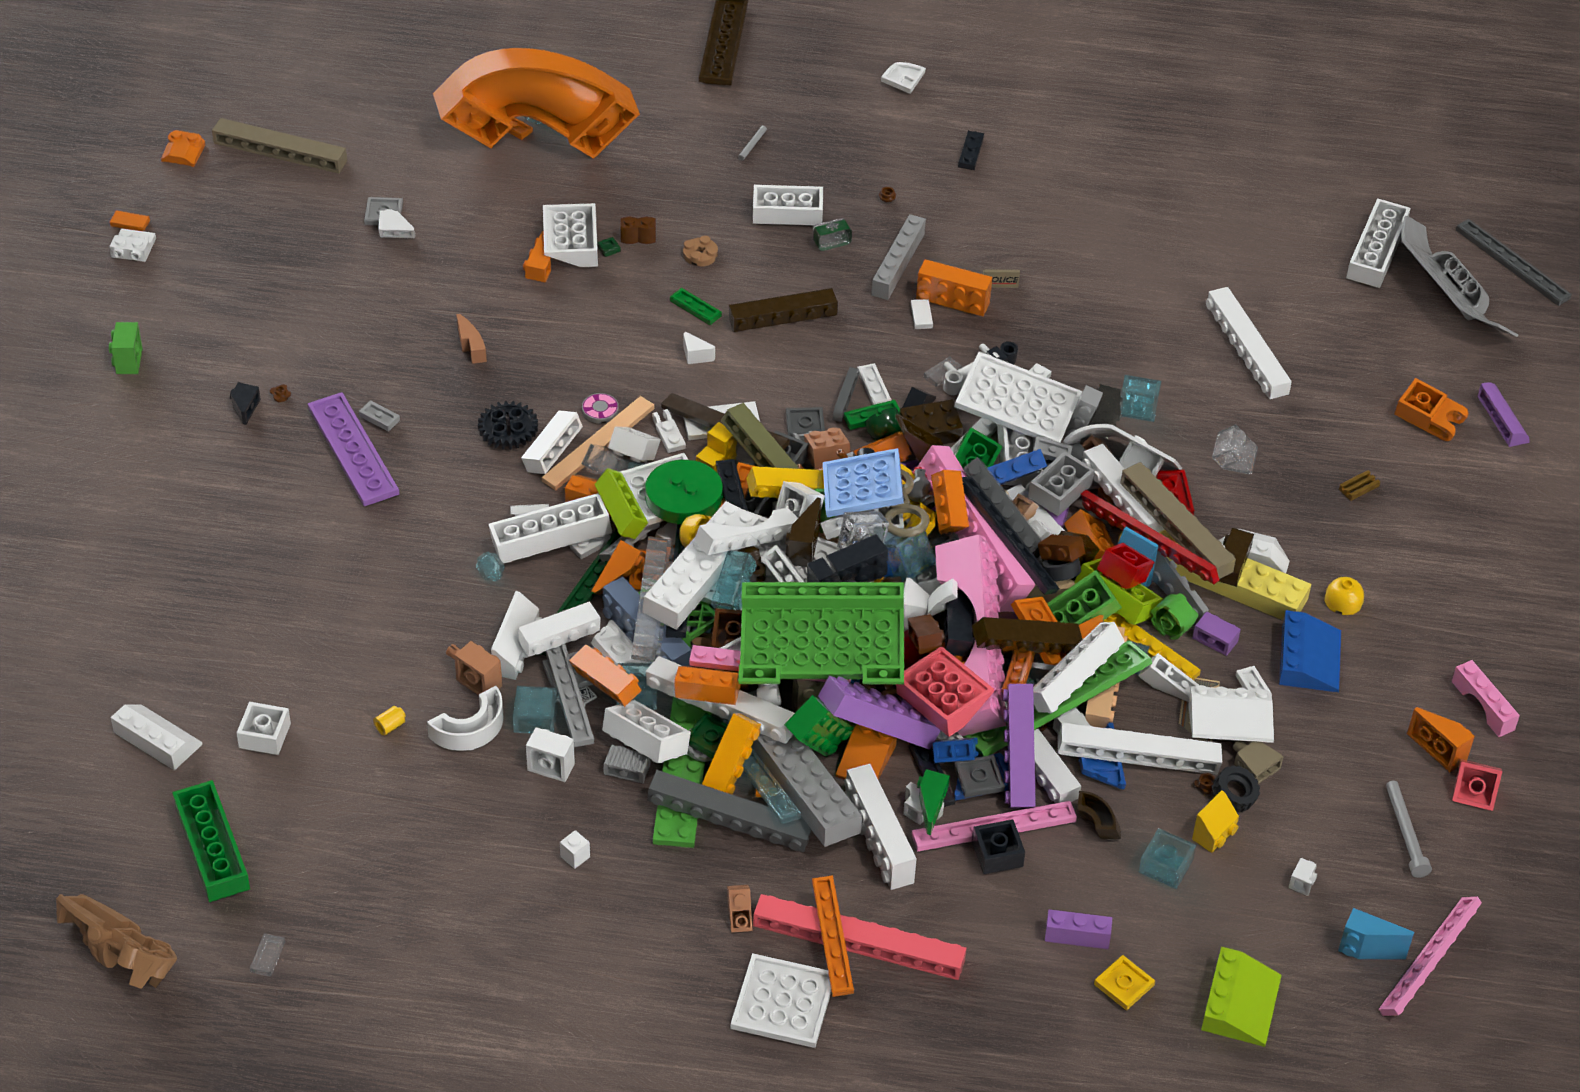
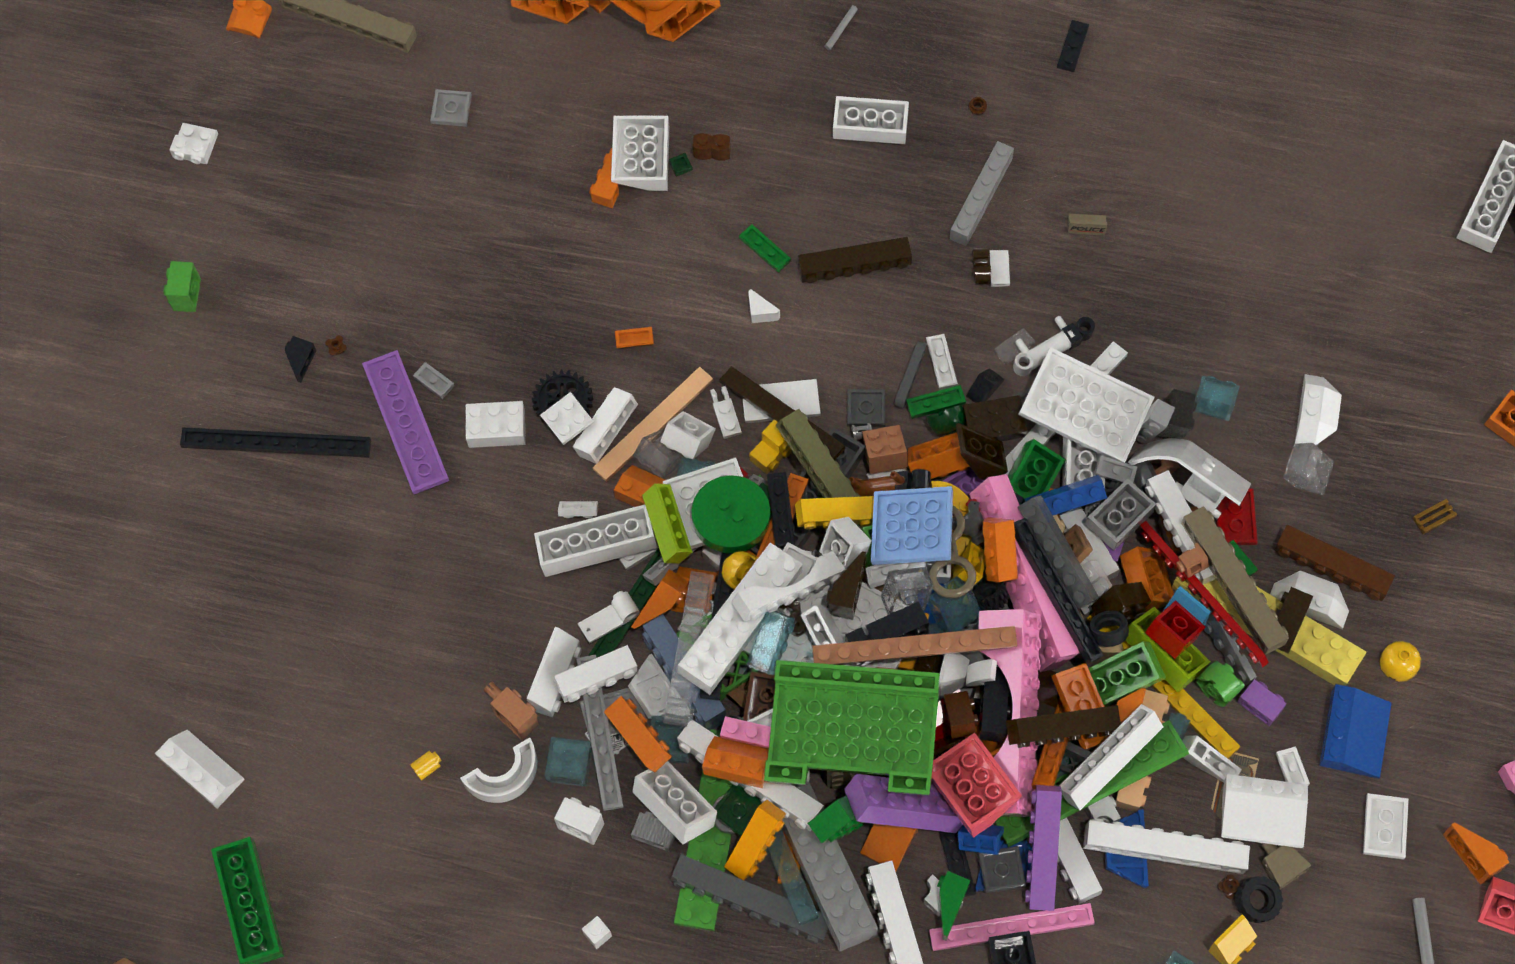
camera: 10 degrees right, 20 degrees up
(129, 221) = (192, 111): orange tile -> none
(223, 469) = (275, 442): none -> black plate
(263, 728) = (302, 770): white brick -> none
(394, 225) = (458, 130): white slope -> none
(443, 445) = (495, 424): none -> white brick
(471, 340) = (530, 286): nougat slope -> none
(490, 566) = (534, 580): clear light blue head -> none
(514, 435) = (567, 418): none -> white plate
(574, 377) = (634, 337): none -> orange tile
(579, 585) = (610, 618): none -> white door
(600, 408) = (657, 379): tile -> none
(692, 250) = (772, 165): medium nougat plate -> none
(837, 234) = (914, 159): clear piece -> none
(882, 567) = (915, 646): none -> nougat plate
(903, 309) = (981, 268): none -> dark brown leg
(954, 287) = (1035, 241): orange brick -> none
(1061, 548) = (1110, 610): reddish brown brick -> none
(1097, 810) = (1118, 923): dark brown brick -> none
(1136, 507) = (1193, 561): none -> nougat brick
(1237, 406) = (1317, 410): none -> white wedge
(1248, 343) = (1340, 324): white brick -> none
(1270, 522) = (1334, 563): none -> reddish brown brick
(1350, 726) = (1385, 826): none -> white plate

